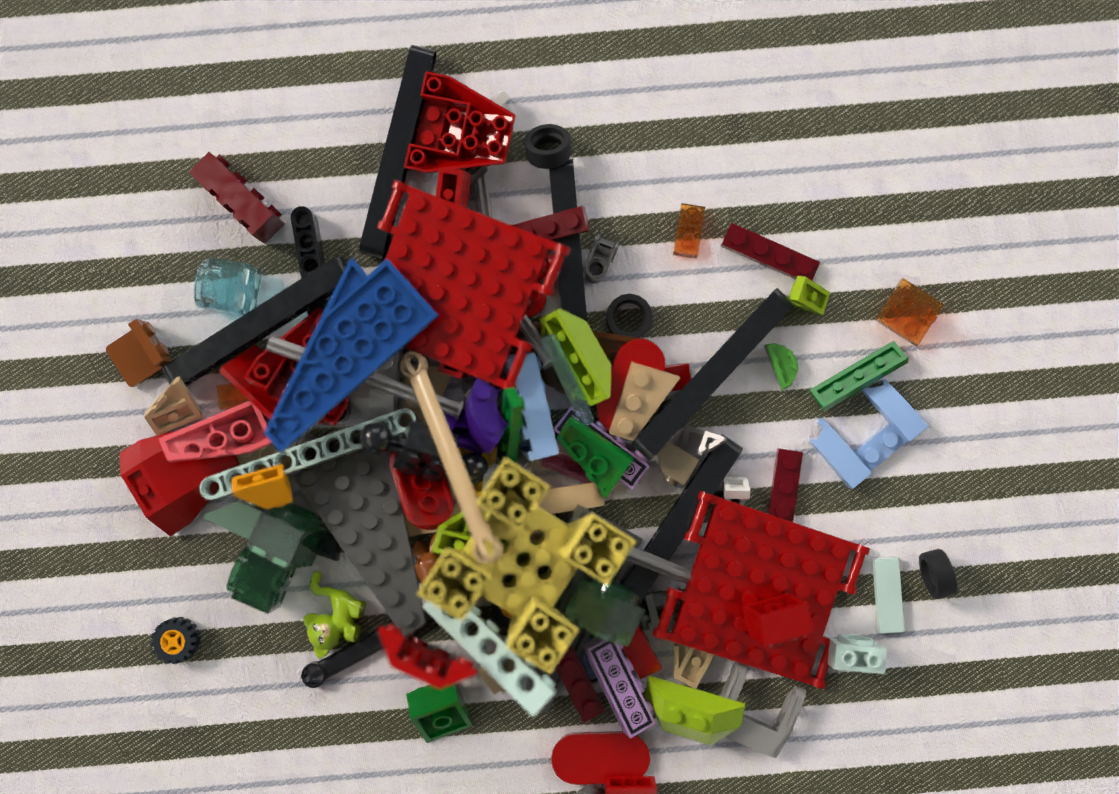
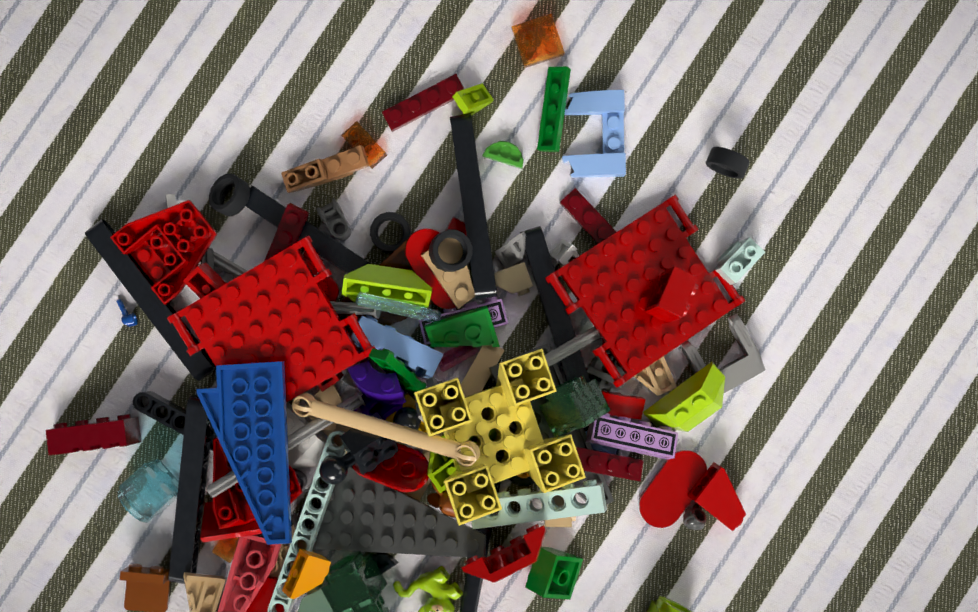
camera: 50 degrees left, 0 degrees up
(364, 144) = (129, 320): none -> blue hand
(638, 214) = (325, 170): none -> medium nougat slope
(674, 394) = (465, 243): none -> black tyre
(888, 595) = (716, 207): light aqua tile -> none

